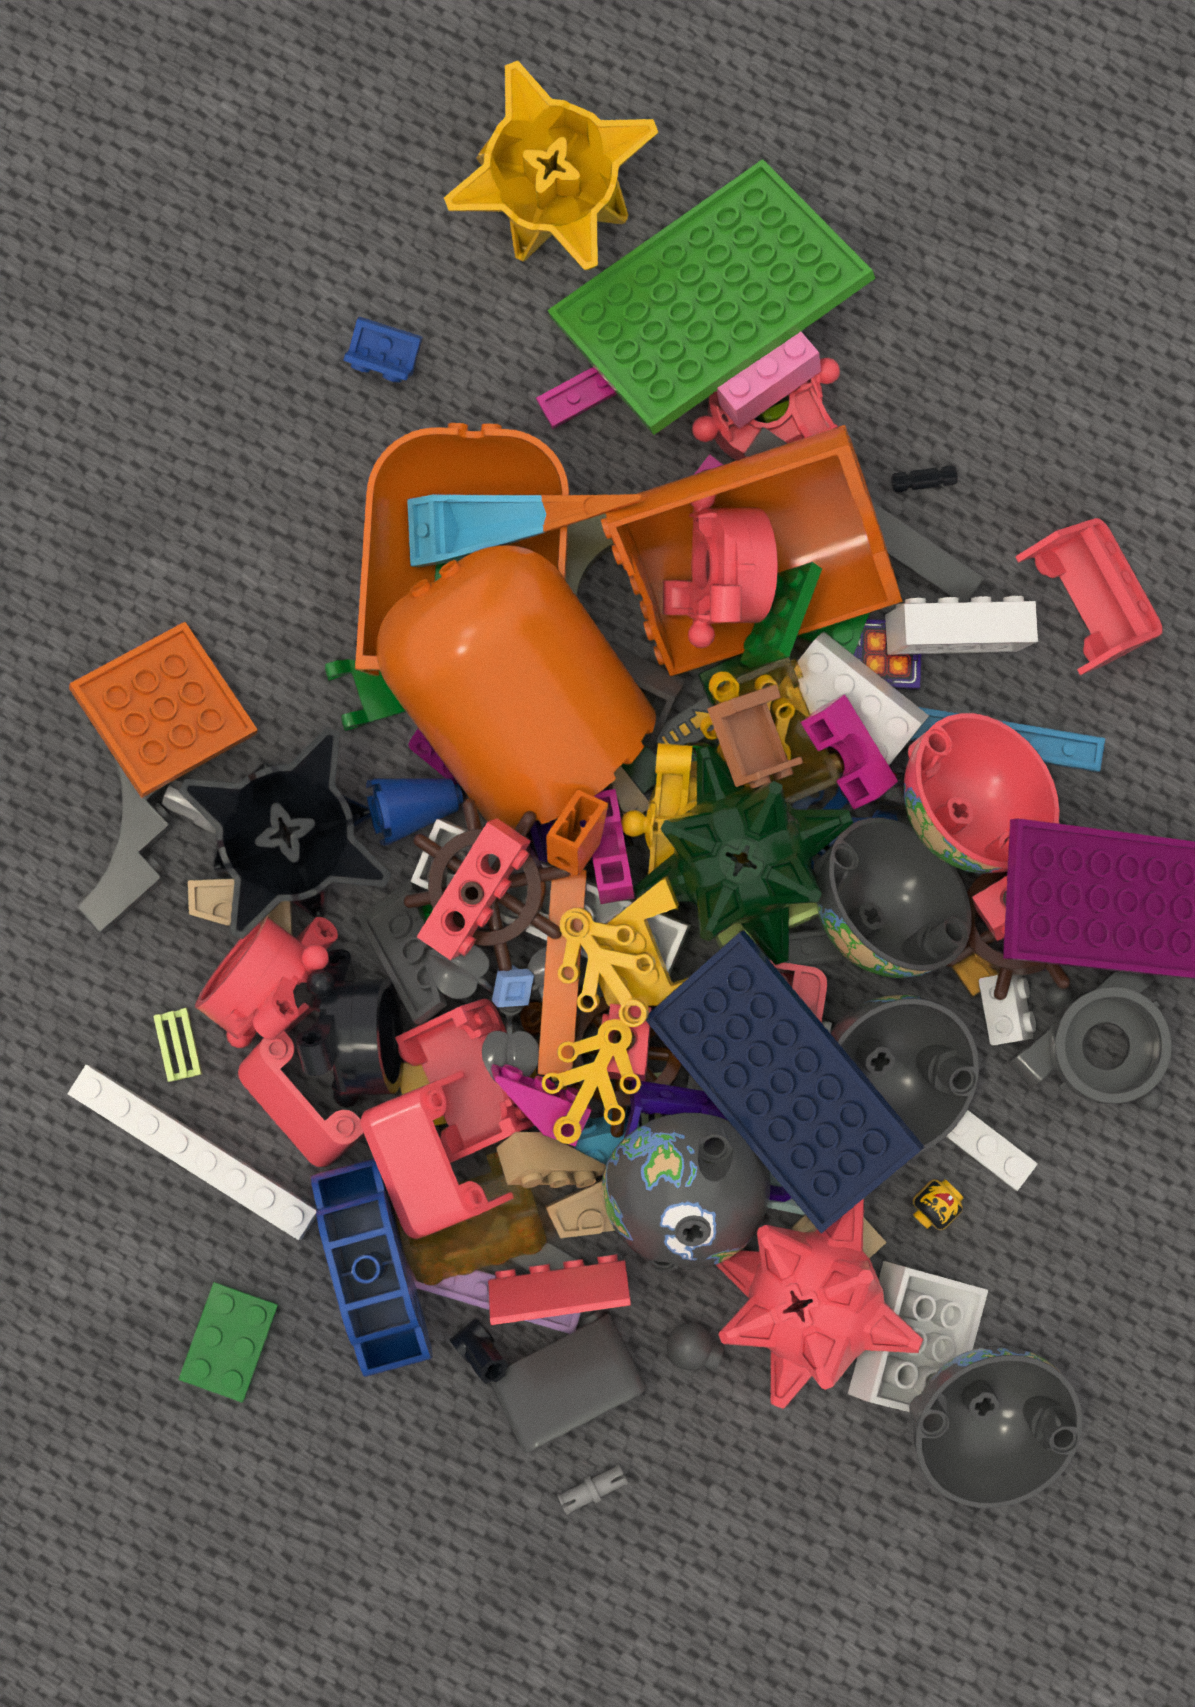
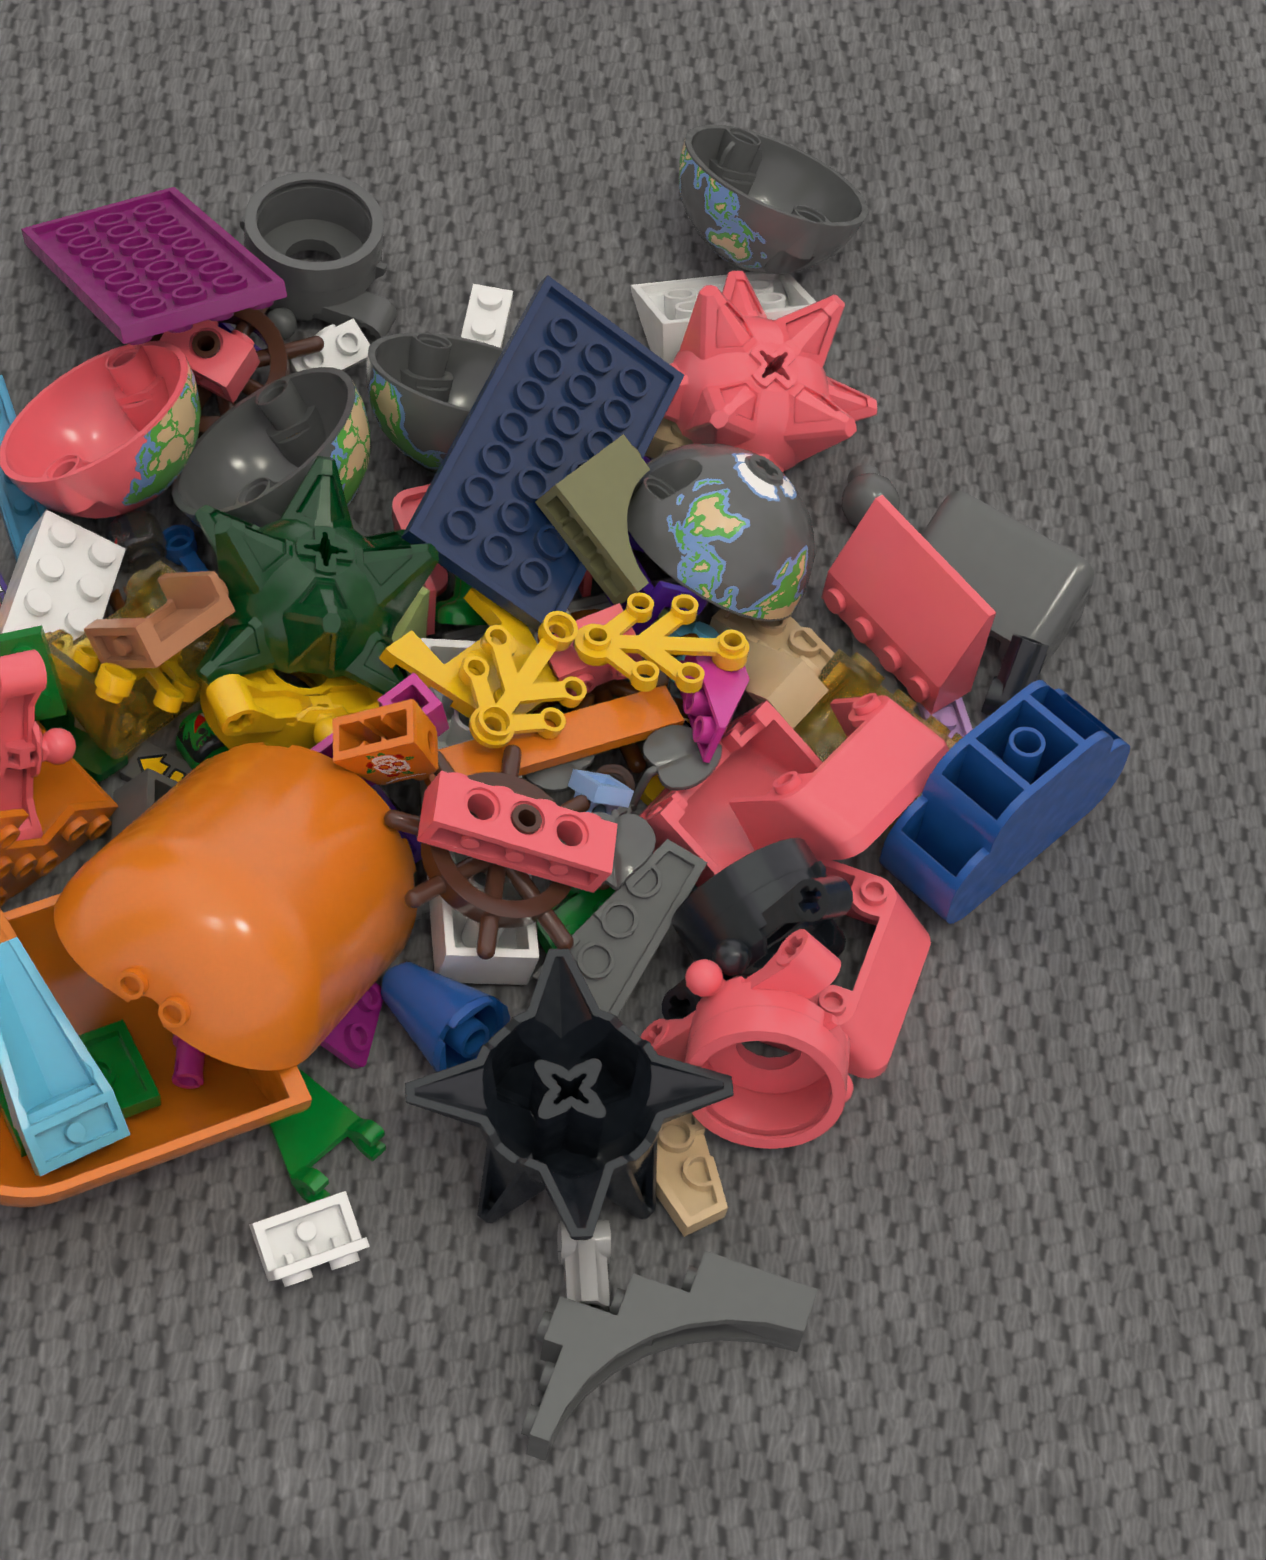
camera: 130 degrees left, 30 degrees down
(163, 709) = (486, 1351): orange plate -> none
(171, 1017) = (915, 1133): yellowish green tile -> none
(193, 1152) = (1005, 1072): white brick -> none
(228, 1342) = (1183, 943): green plate -> none
(297, 648) = (308, 1237): none -> white bracket
(592, 1489) = (1076, 535): light grey pin -> none
(723, 1091) = (592, 513): none -> olive arch
(865, 770) = (105, 569): dark pink arch -> none

